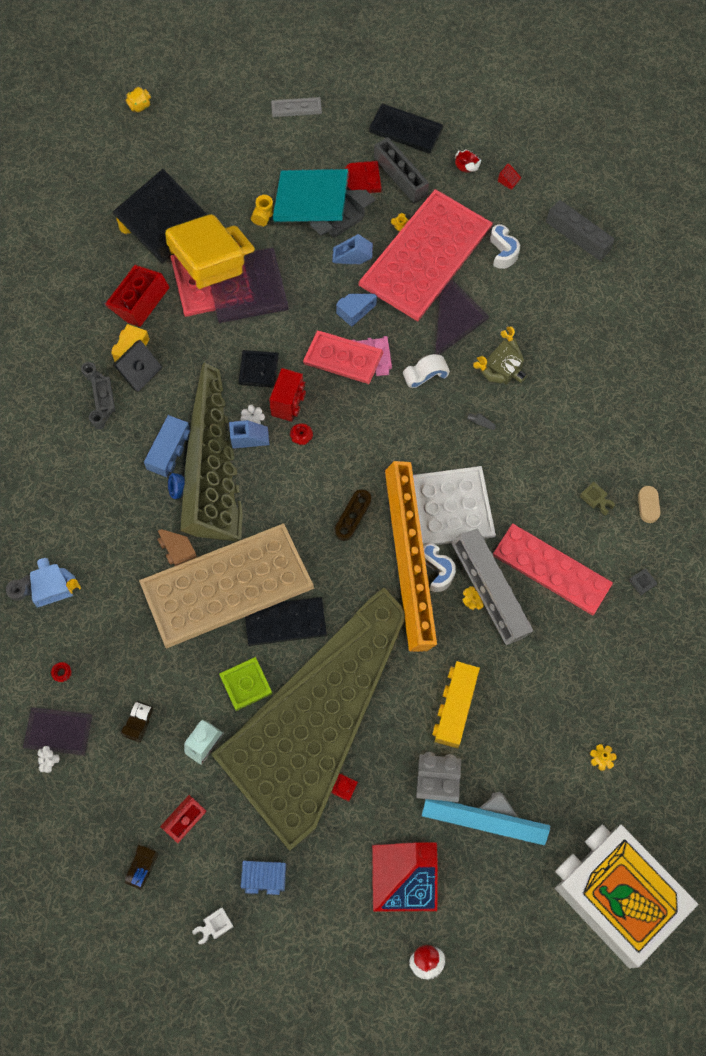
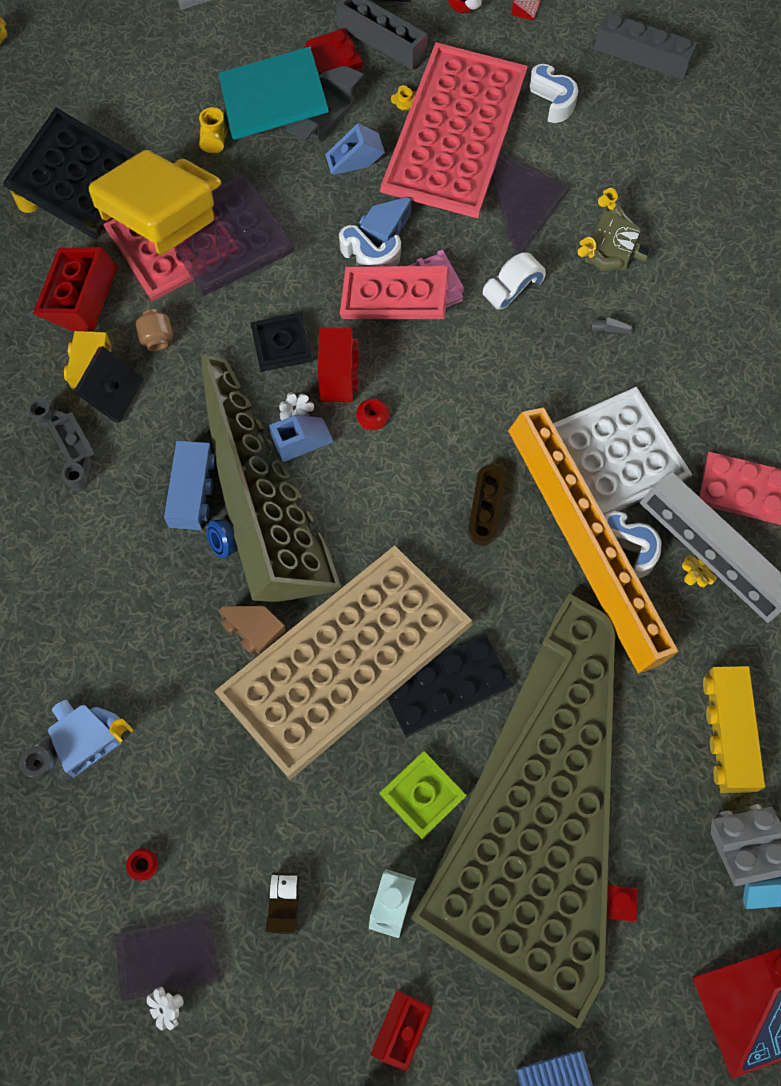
camera: 15 degrees left, 0 degrees up
(179, 337) = (154, 330): none -> medium nougat head
(347, 330) = (355, 242): none -> white animal

